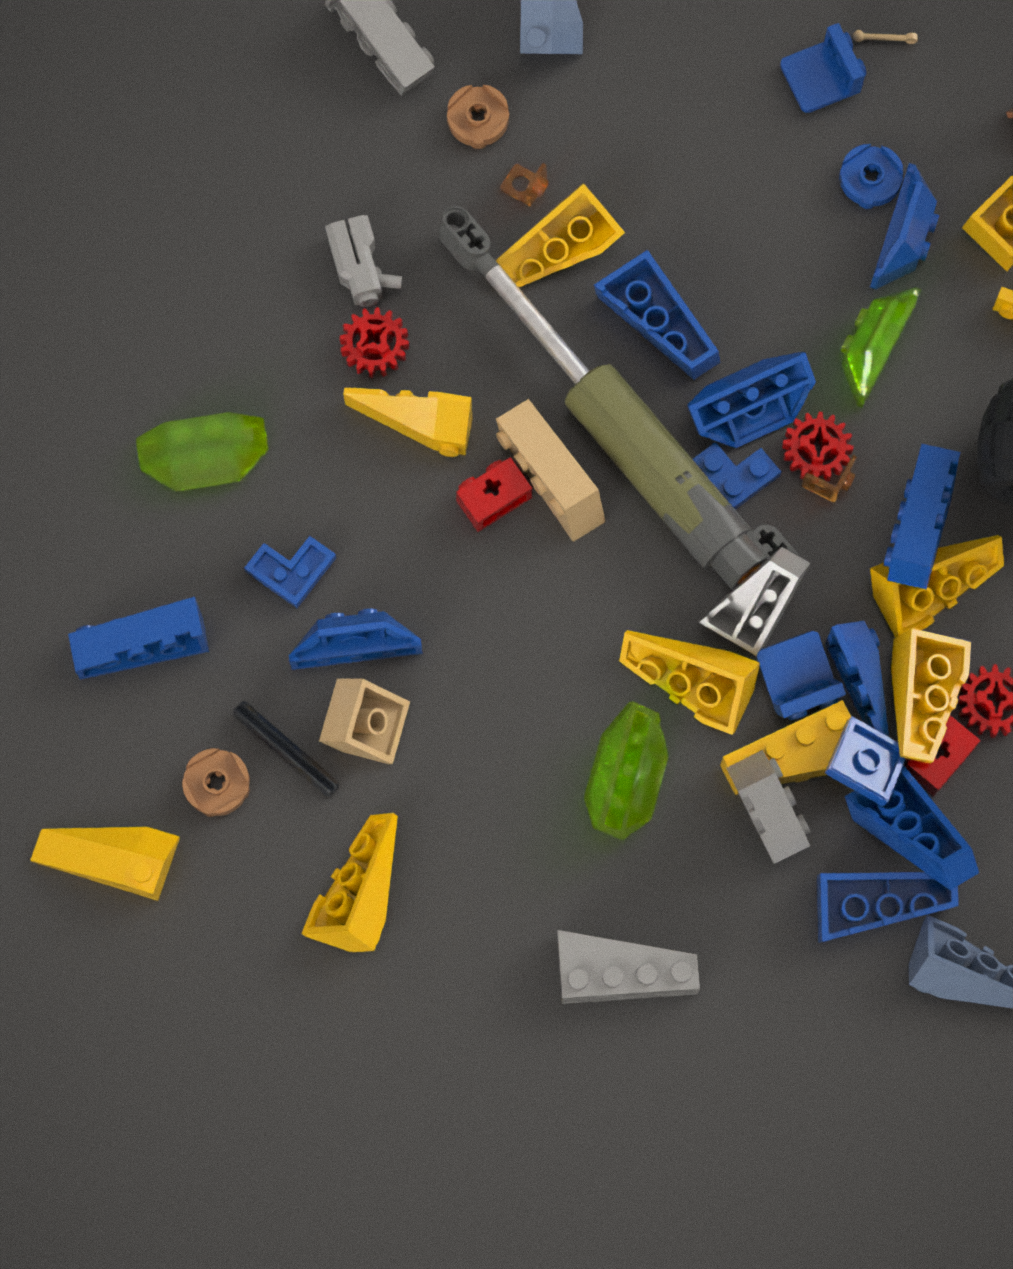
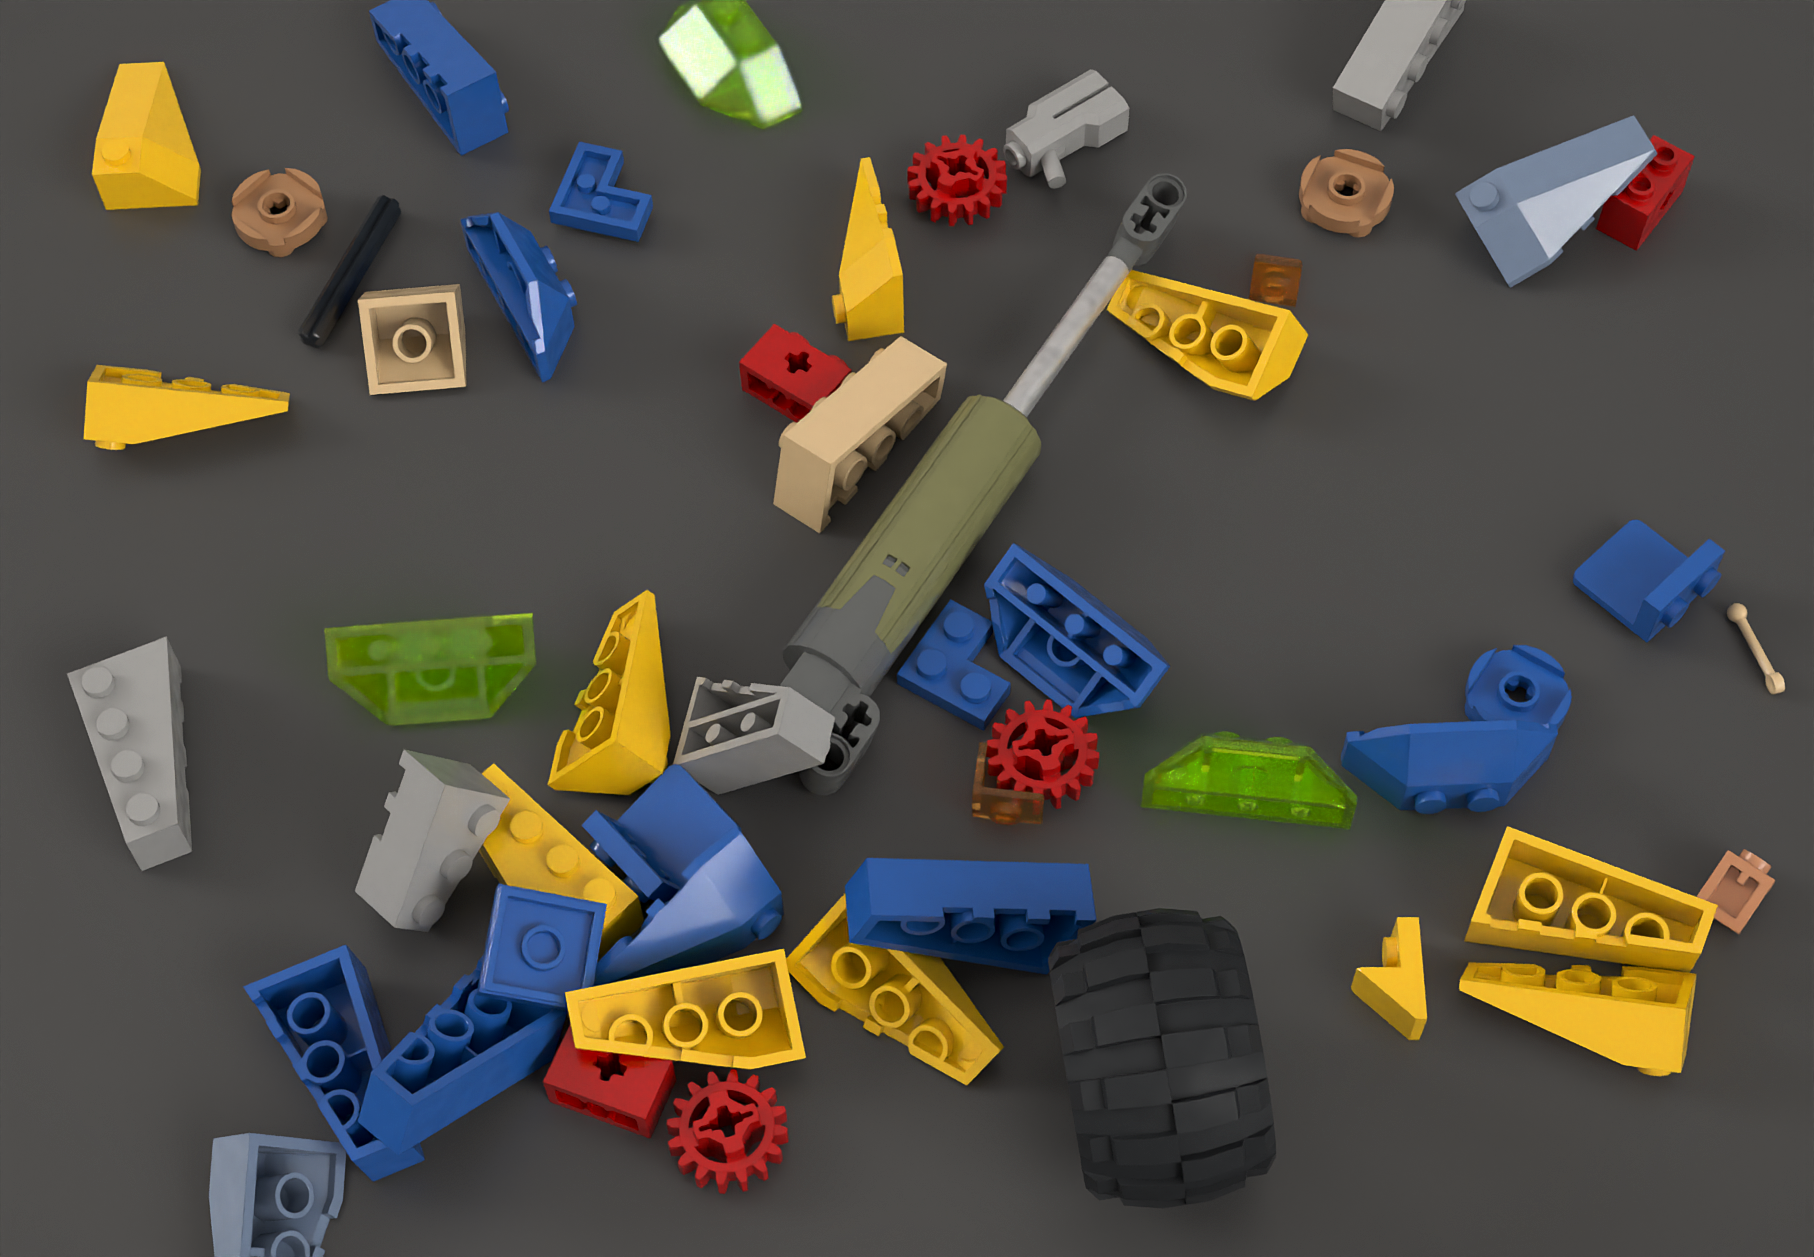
camera: 70 degrees right, 15 degrees down
(656, 311) = (1153, 483): blue wedge -> none

